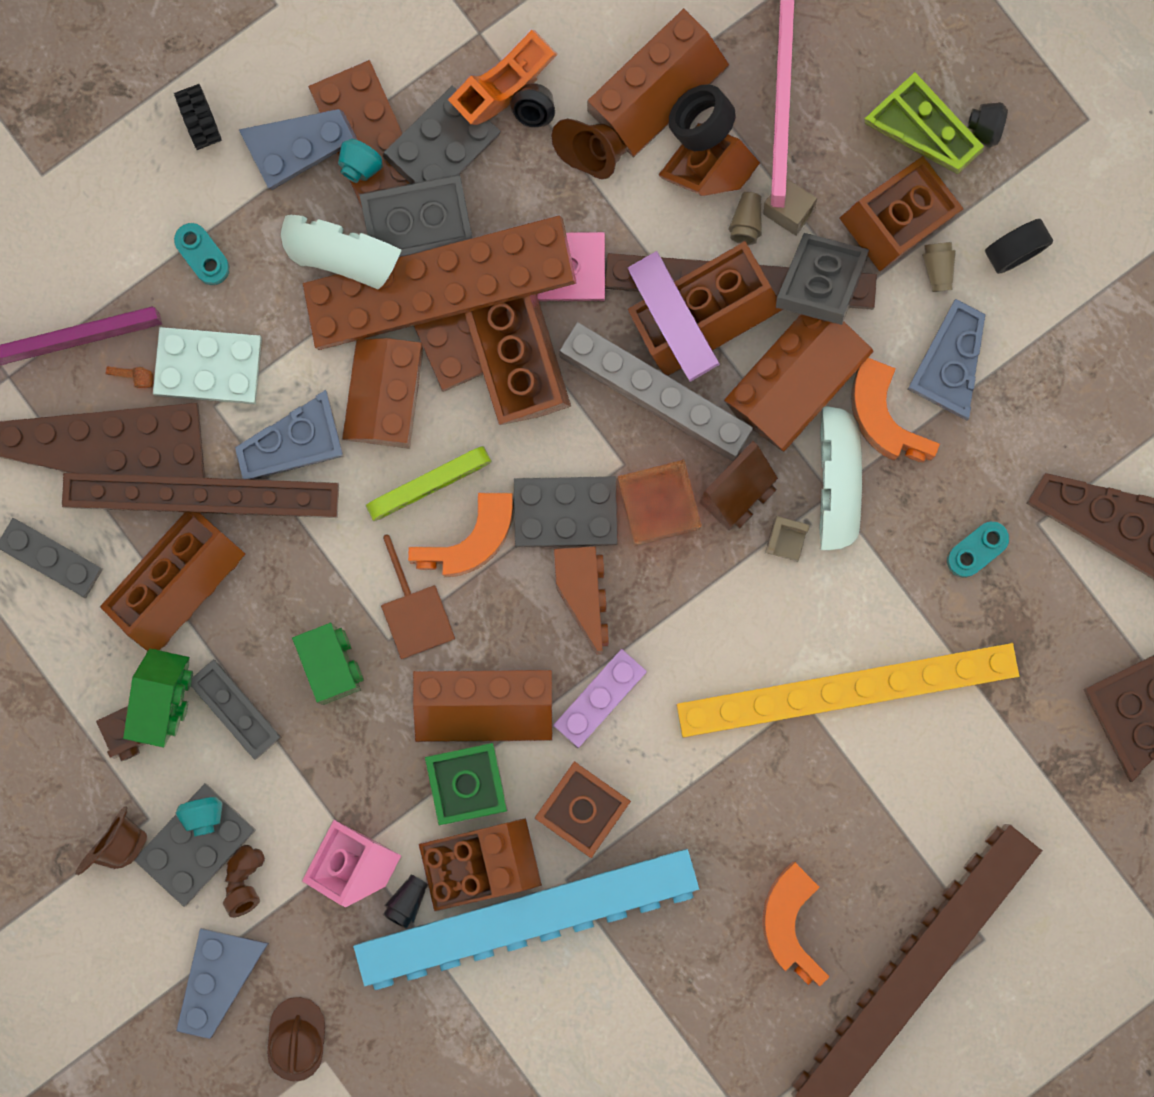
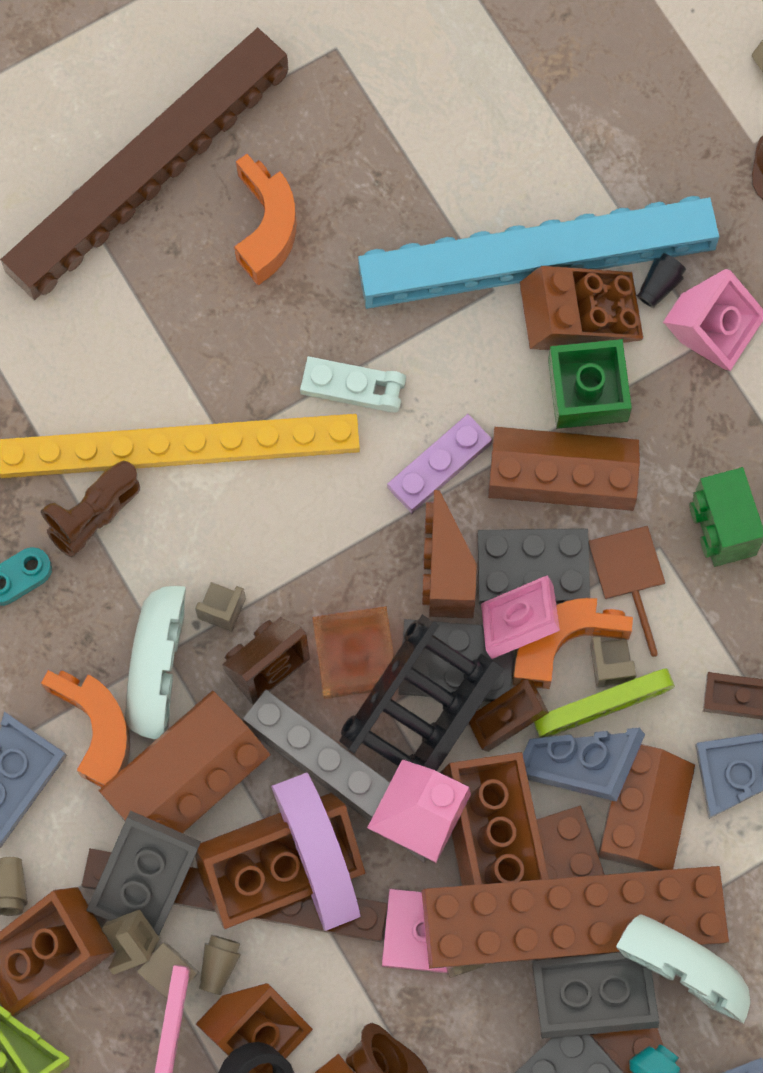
camera: 170 degrees left, 10 degrees down
(423, 523) = (611, 662): none -> dark tan panel
(442, 420) = (584, 764): none -> sand blue wing
(503, 608) = (523, 555): none -> dark grey plate
(511, 547) = (519, 617): none -> bright pink plate
(515, 461) = (507, 715): none -> reddish brown plate
(575, 432) = (457, 705): none -> black fence
(582, 809) = (470, 347): dark orange brick -> none
(585, 356) = (420, 809): none -> bright pink slope
(691, 768) = (352, 384): none -> light aqua plate
(823, 226) = (132, 939): none -> dark tan panel
(913, 616) = (99, 506): none -> reddish brown piece

